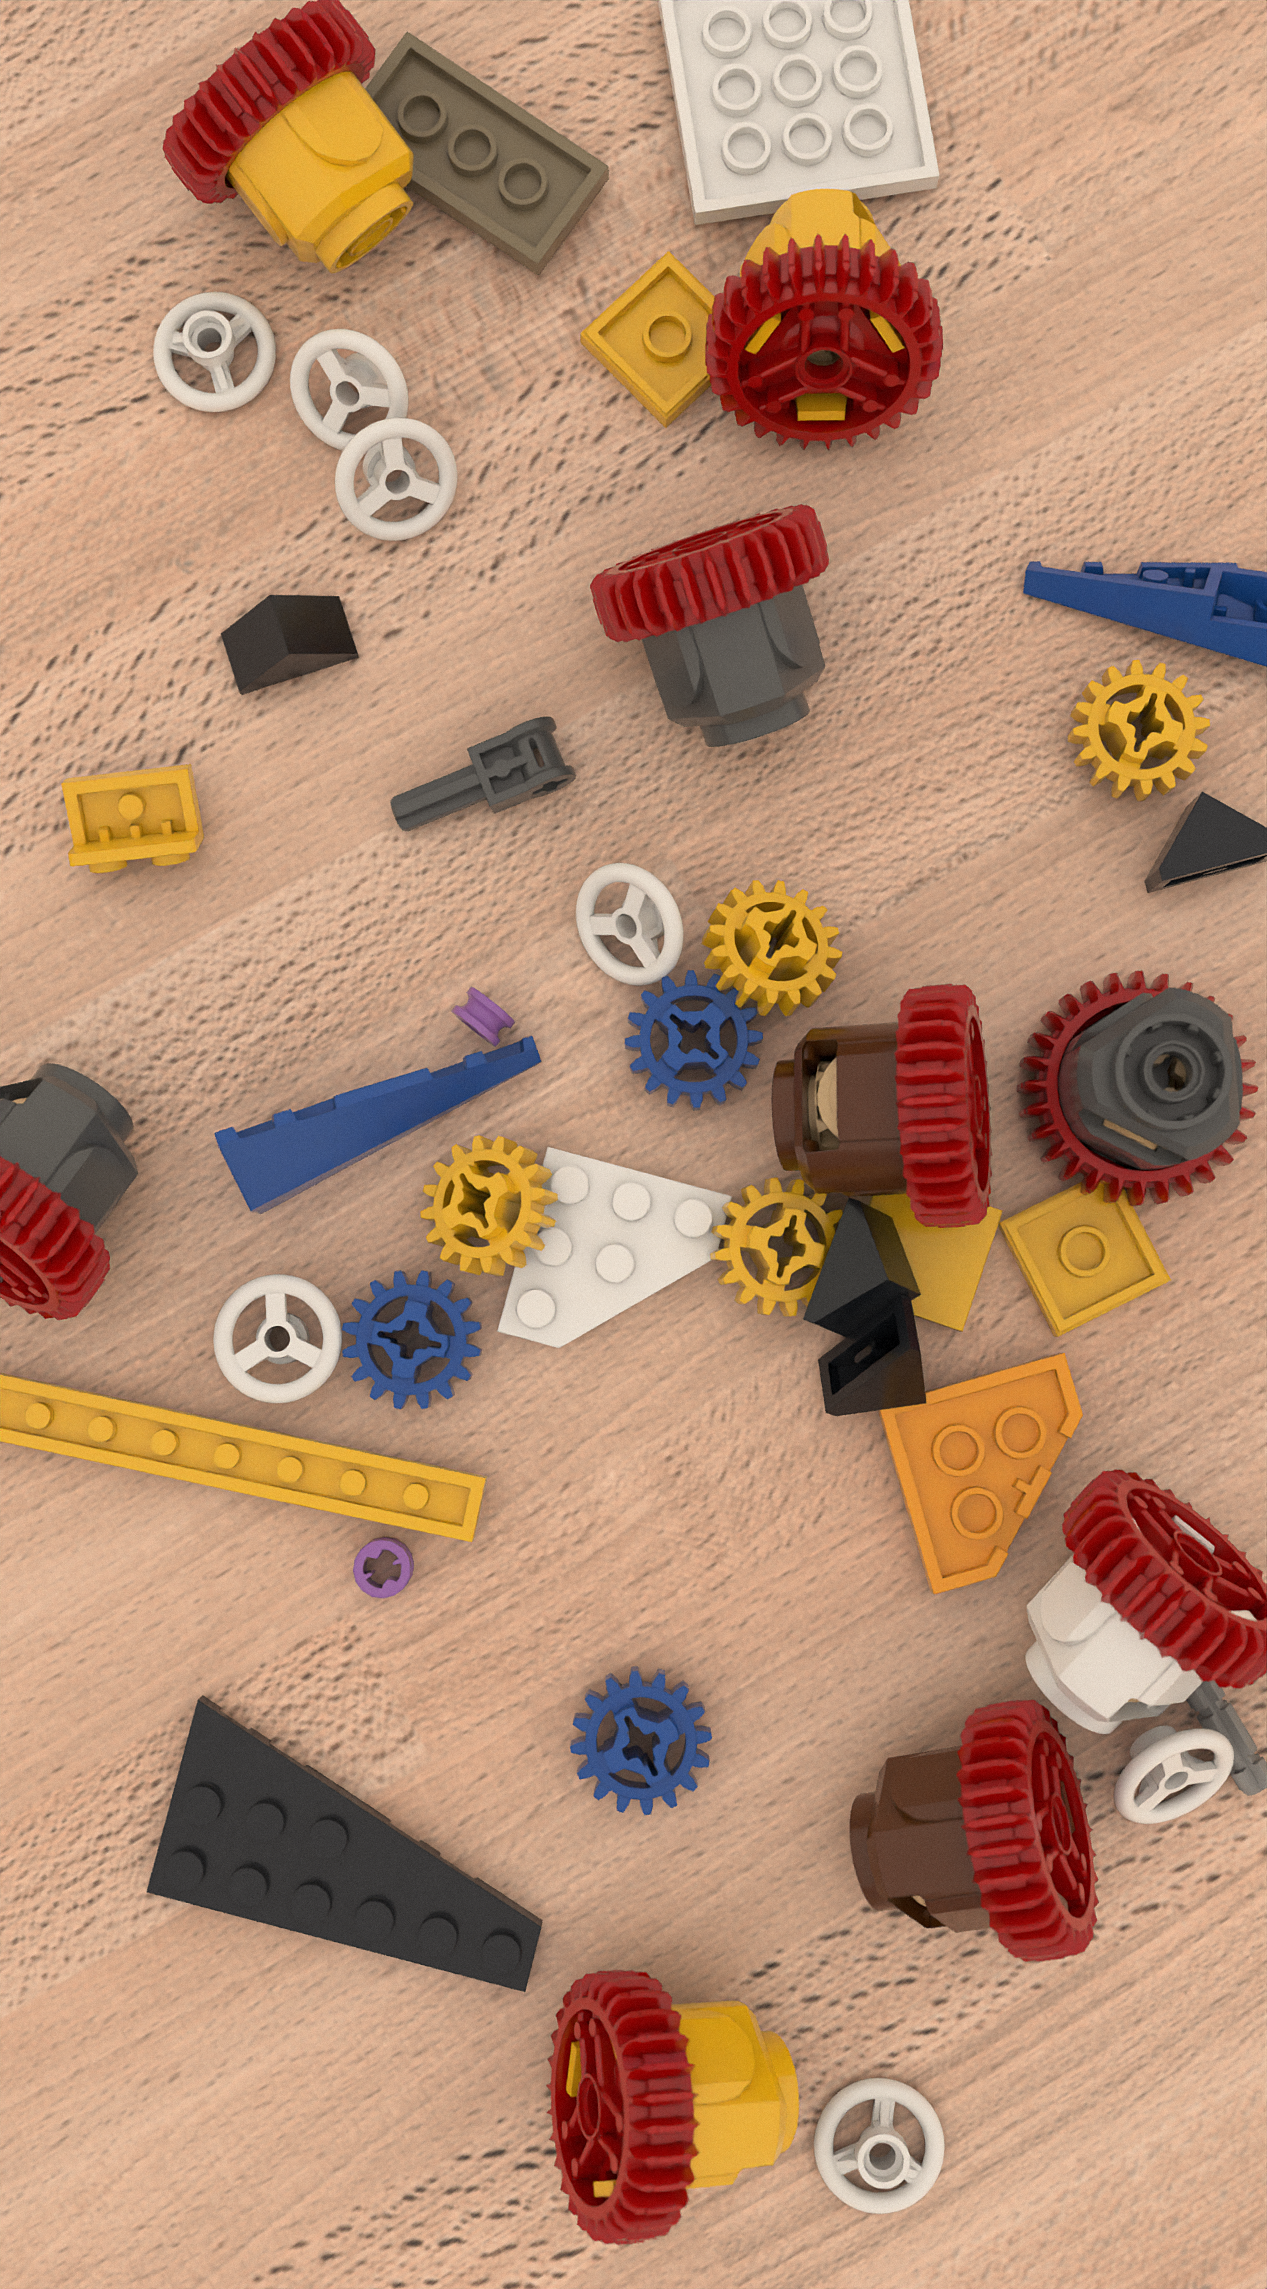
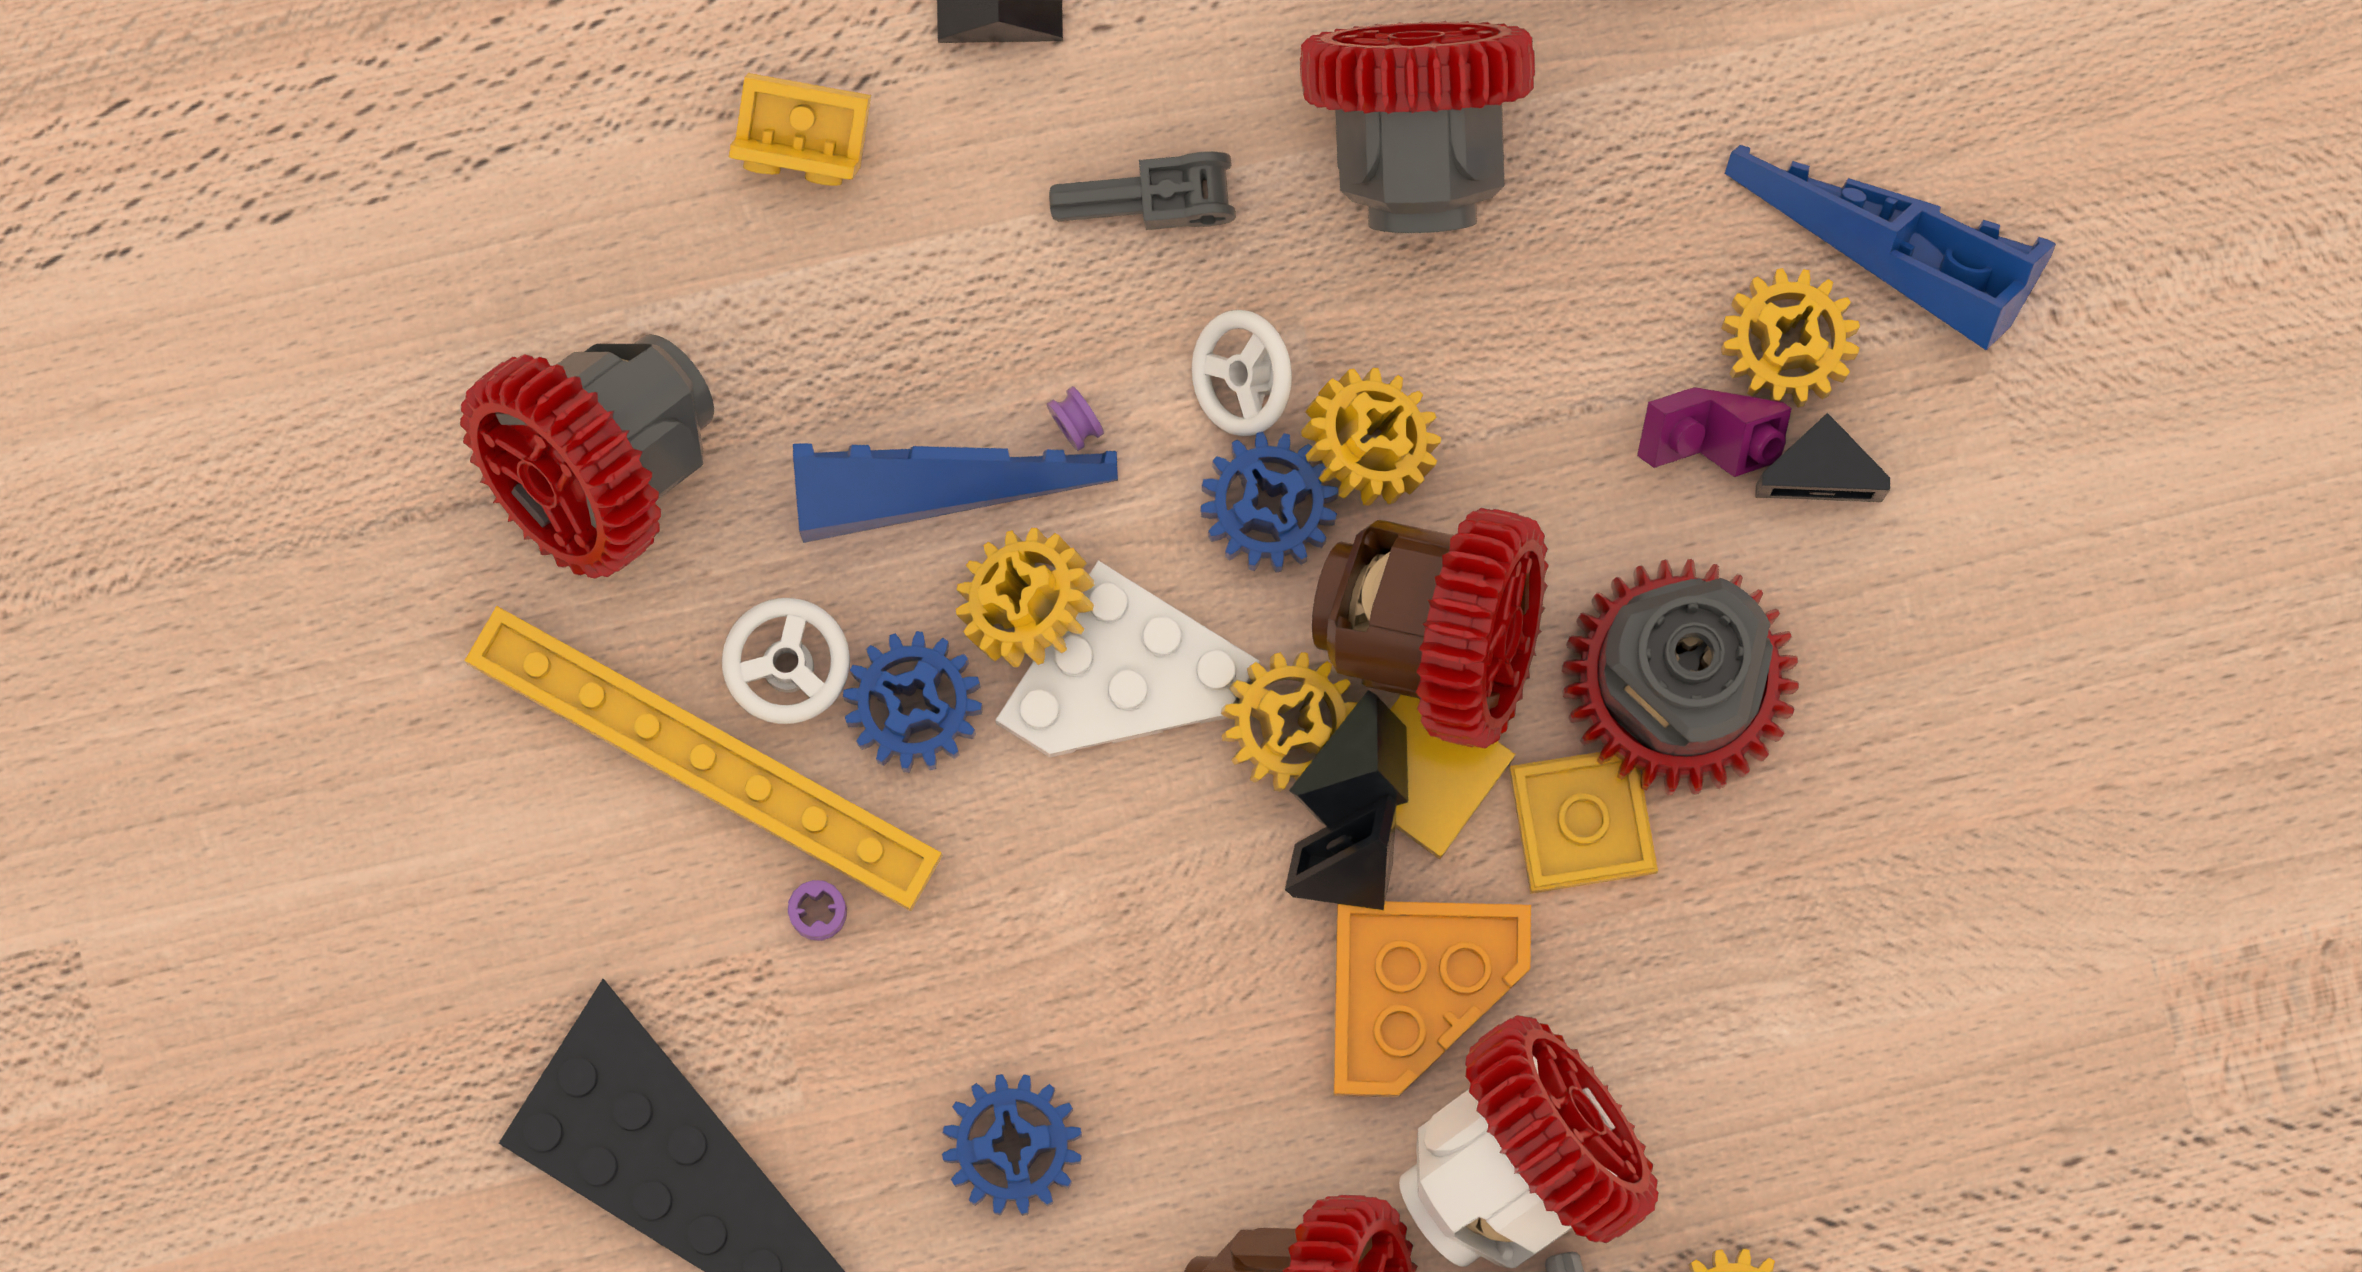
camera: 15 degrees right, 5 degrees down
(1100, 835) = (1725, 427): none -> magenta slope

